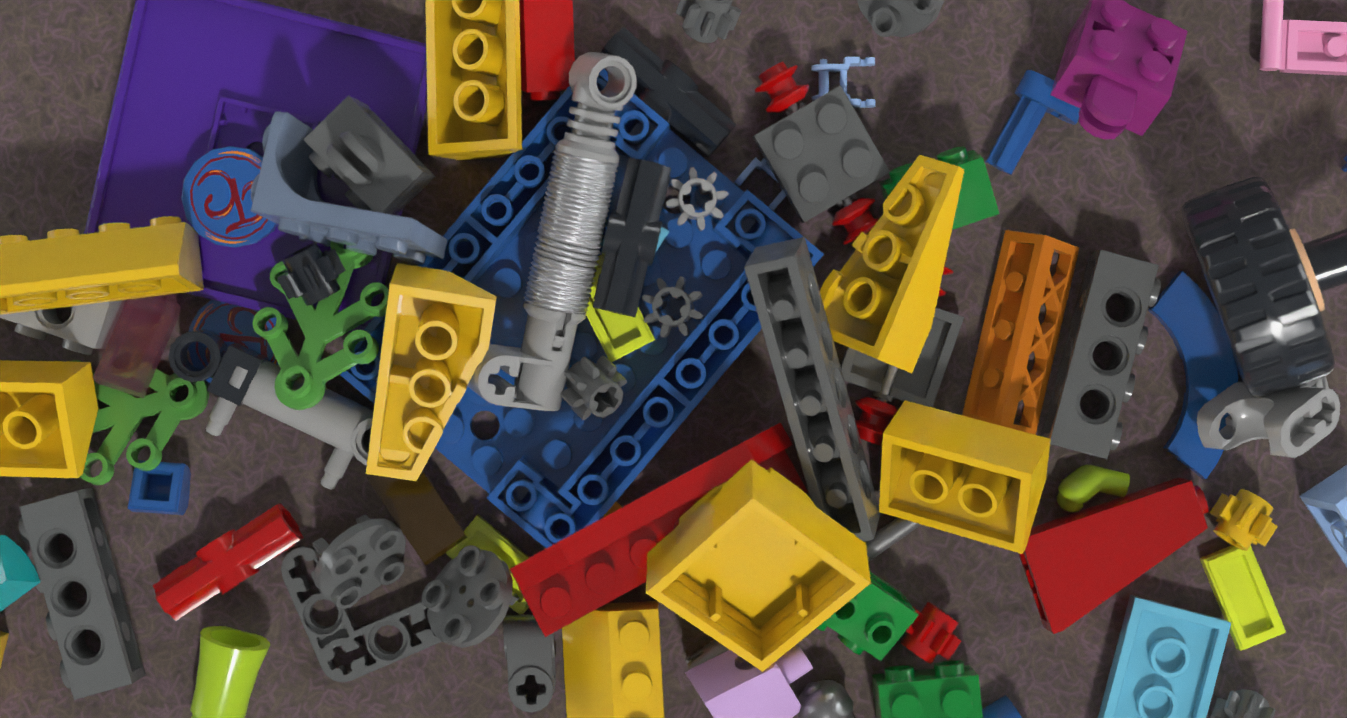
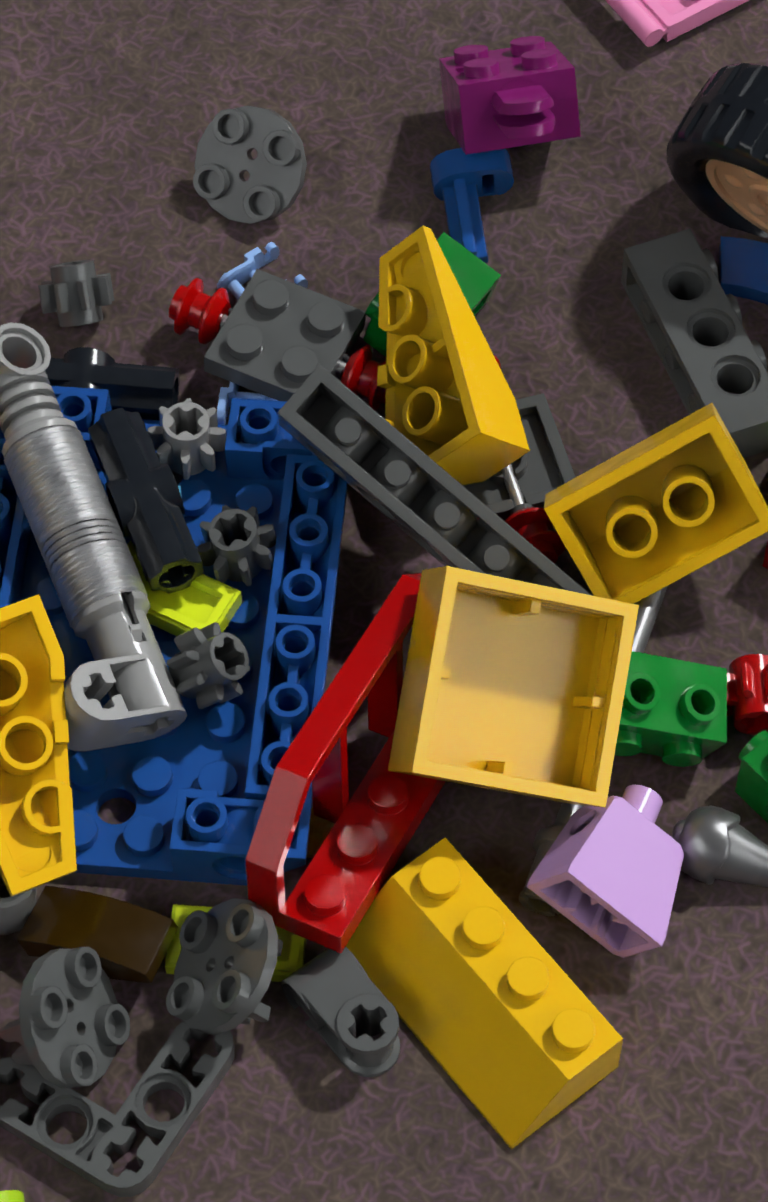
camera: 30 degrees left, 30 degrees down
(1014, 331) = (600, 361): orange fence -> none

